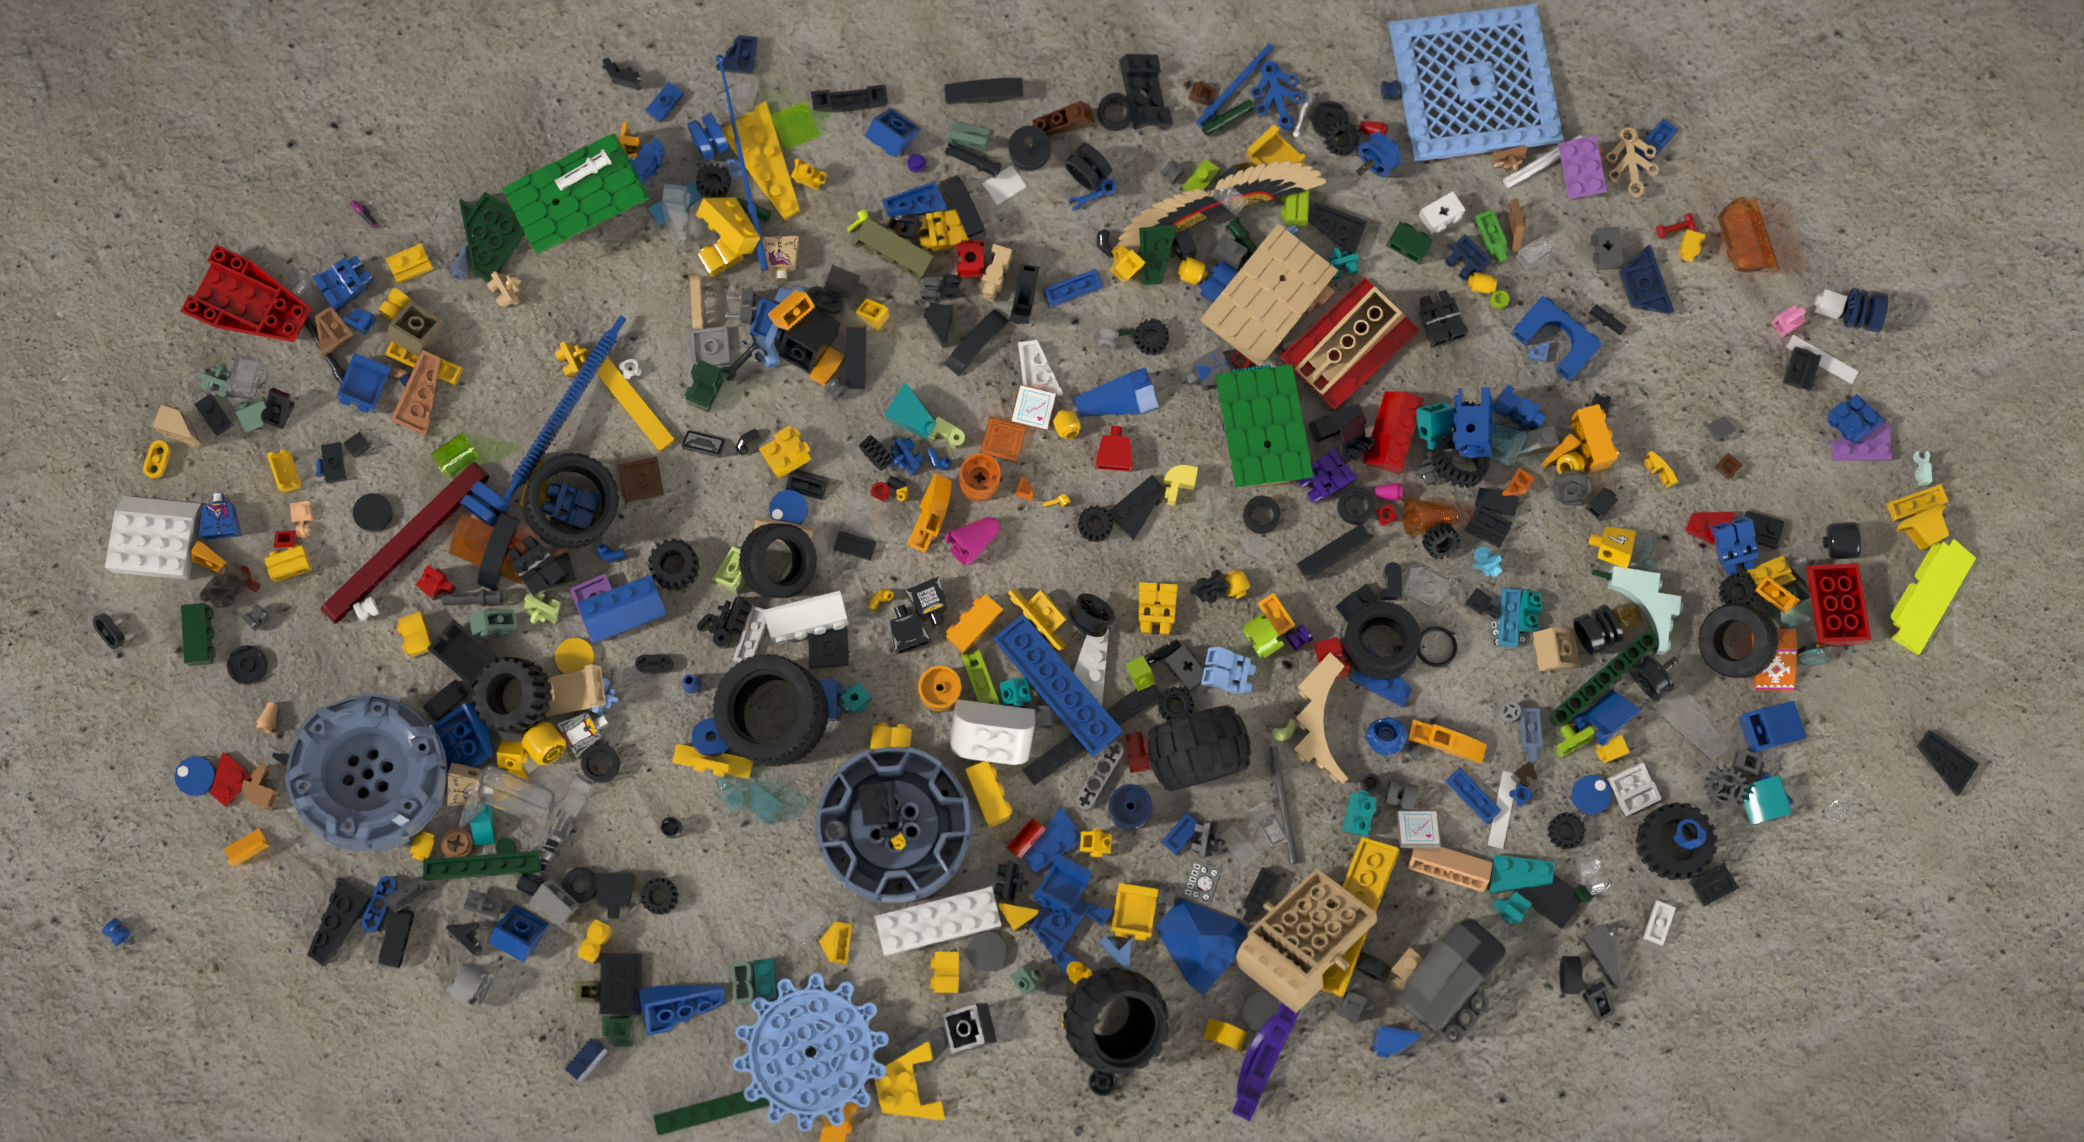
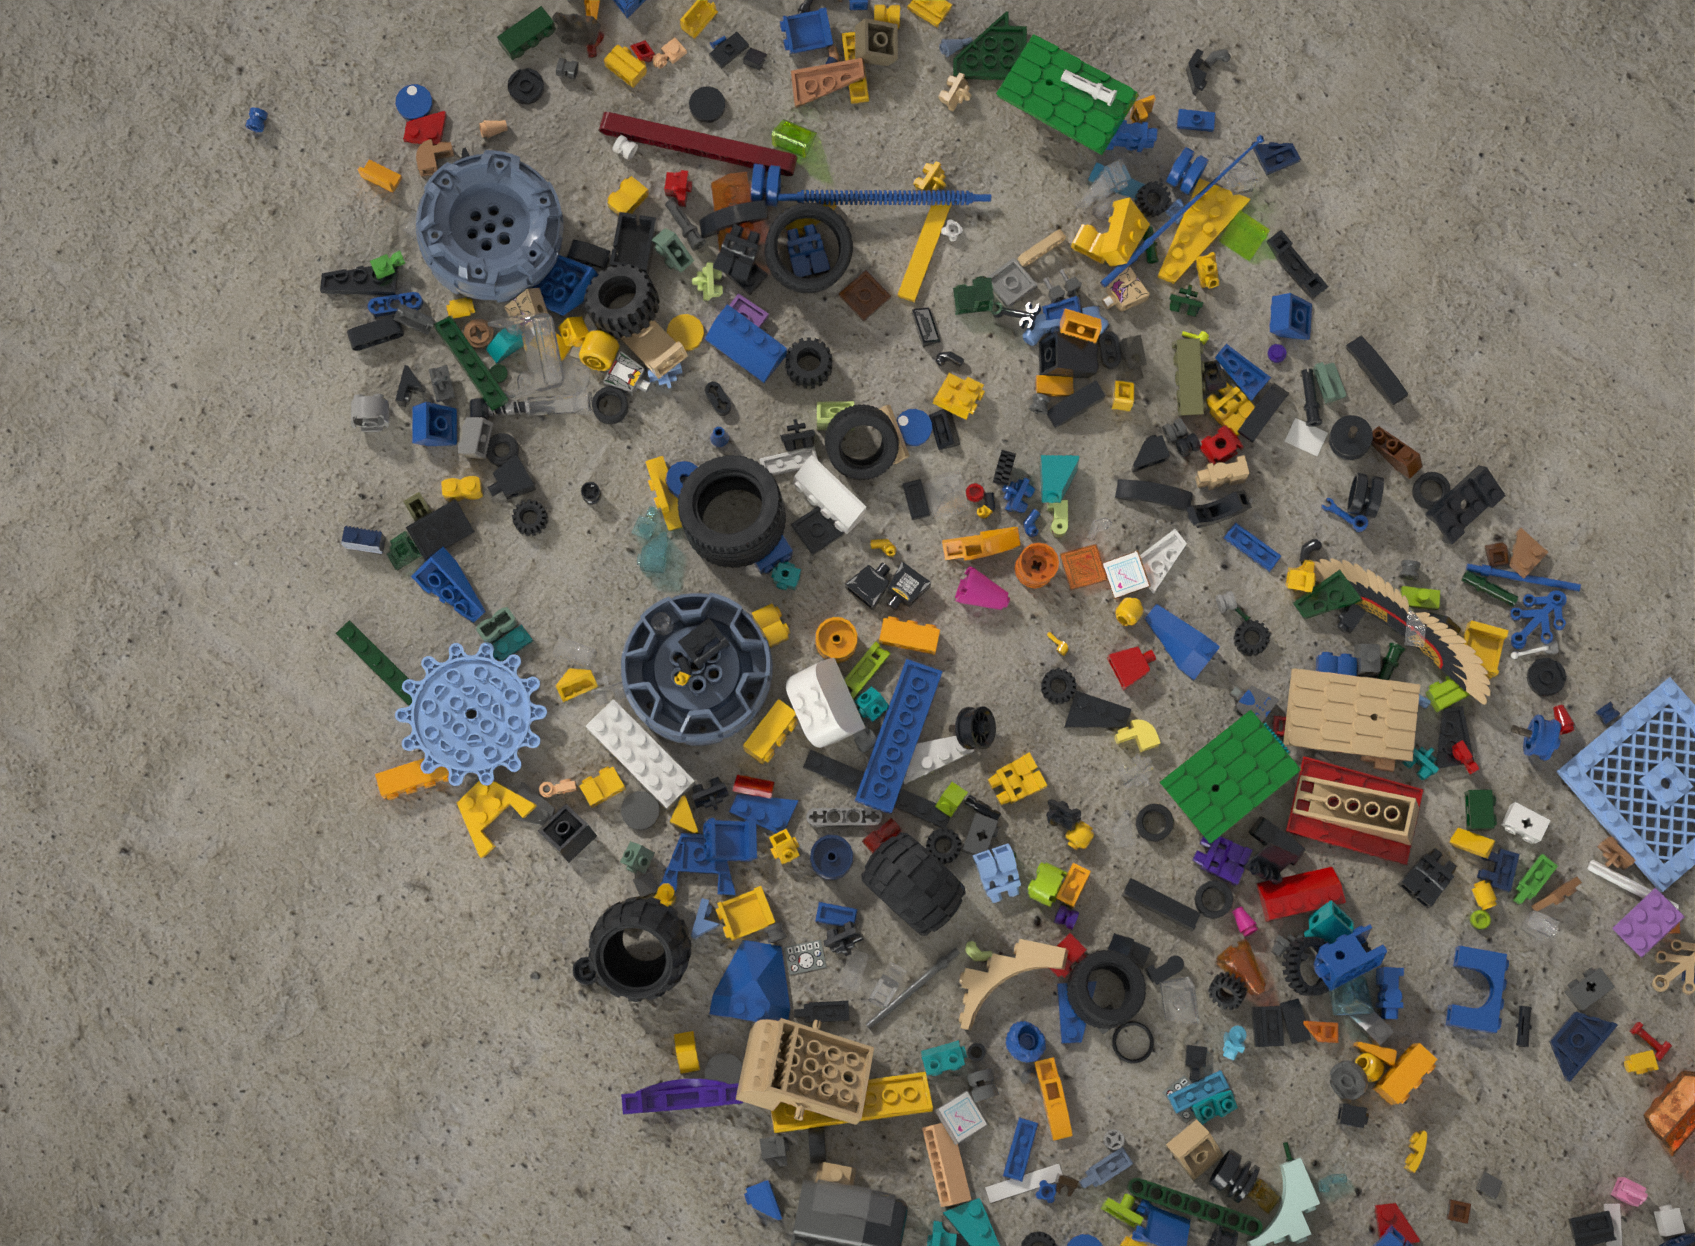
camera: 60 degrees right, 0 degrees up
(337, 893) = (385, 266): none -> bright green plate
(609, 555) = (786, 308): blue arm -> none
(617, 47) = (1222, 54): none -> dark grey arm
(720, 636) = (771, 437): black leg -> none
(830, 205) = (1176, 301): none -> dark green hips
(925, 1006) = (565, 786): none -> light nougat plate
(1024, 489) = (1051, 610): orange tile -> none
(1043, 613) = (952, 689): yellow bracket -> none
(1192, 271) = (1331, 638): yellow head -> none
(1216, 69) = (1526, 553): none -> medium nougat wing
(1352, 138) = (1543, 705): black tyre -> none
(1355, 226) = (1463, 754): none -> red plate
(1388, 509) = (1222, 925): red plate -> none
(1433, 265) = (1472, 842): none -> yellow slope
(1540, 352) = (1455, 982): medium blue tile -> none
(1603, 401) = (1443, 1063): black wheel -> none
(1614, 545) = (1320, 1148): yellow torso -> none

